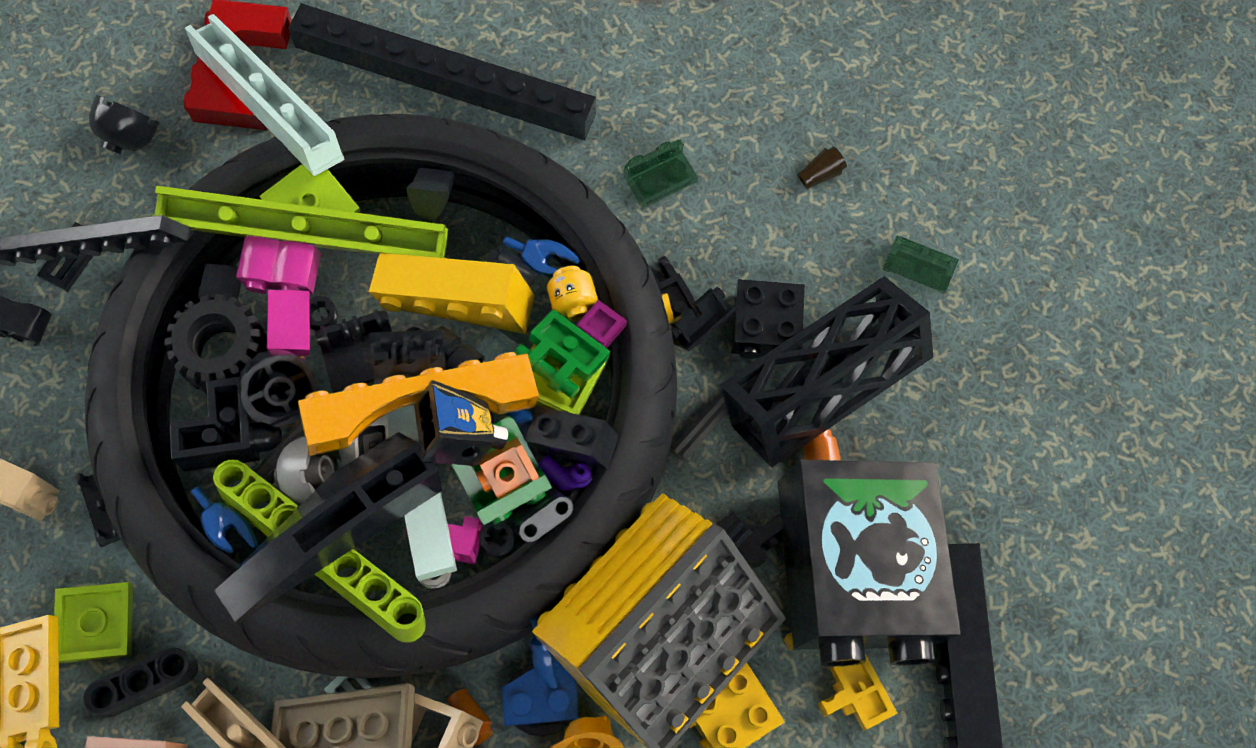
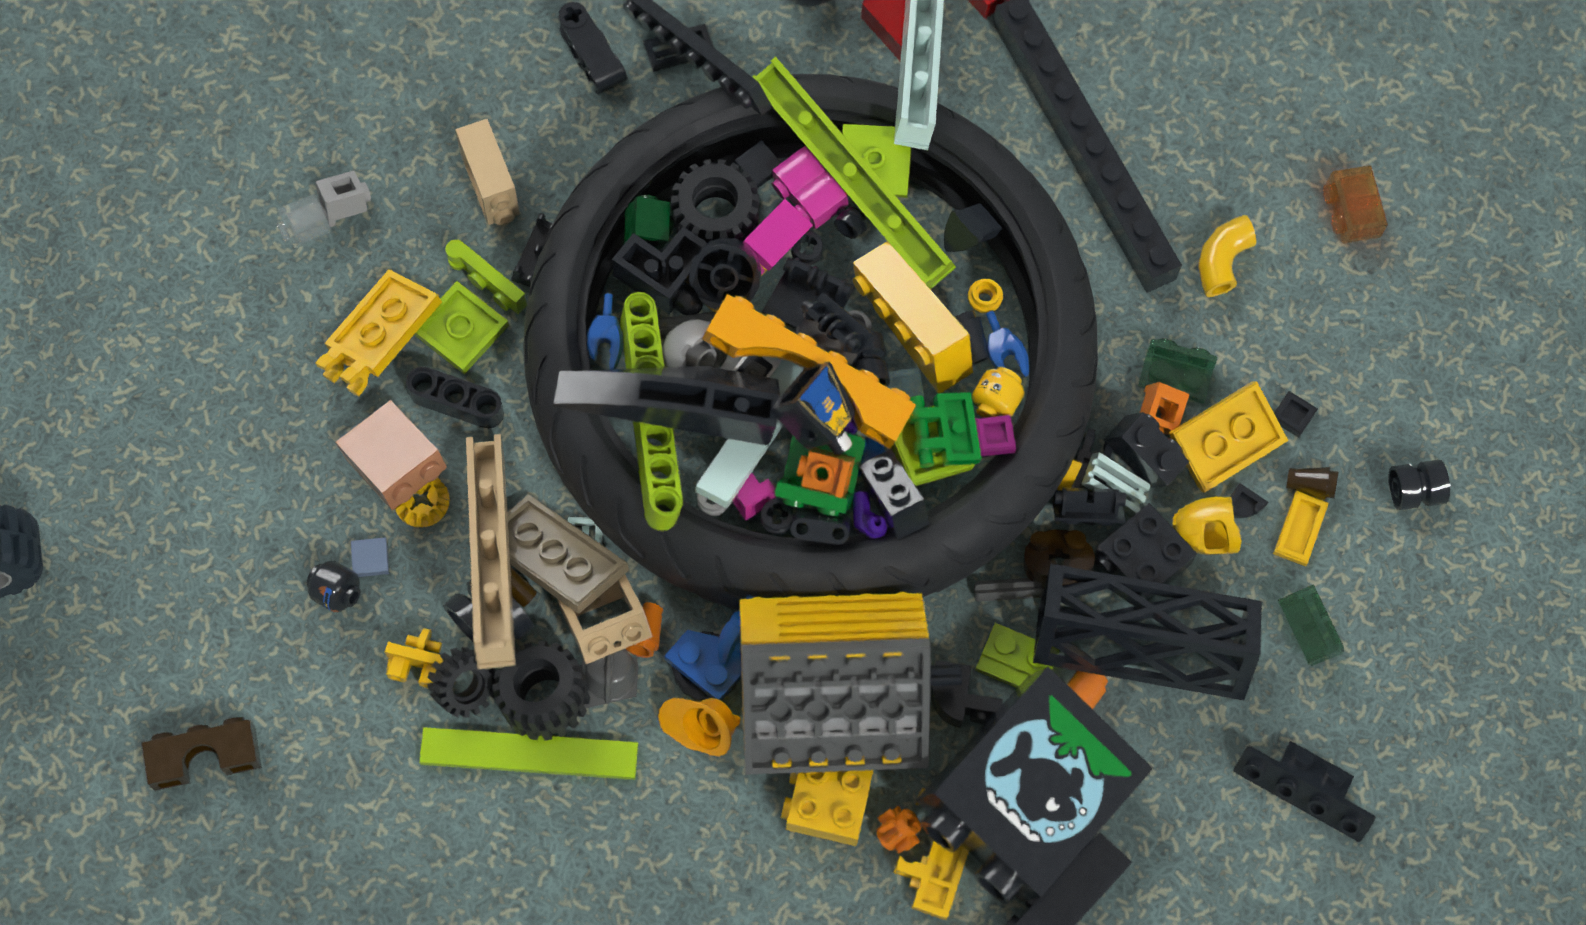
camera: 45 degrees right, 0 degrees up
(74, 564) = (483, 276): none -> lime plate
(172, 401) = (649, 220): none -> dark green brick
(335, 265) = (850, 222): none -> black plate
(487, 222) = (989, 287): none -> yellow plate
(608, 69) = (1219, 253): none -> yellow cylinder
(677, 208) = (1170, 403): none -> orange brick
(695, 283) = (1137, 488): none -> light aqua tile
(697, 244) = (1147, 449): none -> black brick
(700, 366) = (1057, 543): none -> dark brown plate
(738, 188) = (1229, 436): none -> yellow tile
(748, 478) = (1009, 656): none -> lime plate
(763, 135) = (1294, 413): none -> black tile
(788, 257) = (1209, 526): none -> yellow piece
(791, 224) = (1246, 502): none -> black tile
(800, 682) = (898, 829): none -> orange gear
(844, 207) = (1300, 528): none -> yellow tile
(890, 109) = (1424, 484): none -> black wheel
(1026, 375) = (1308, 785): none -> black bracket

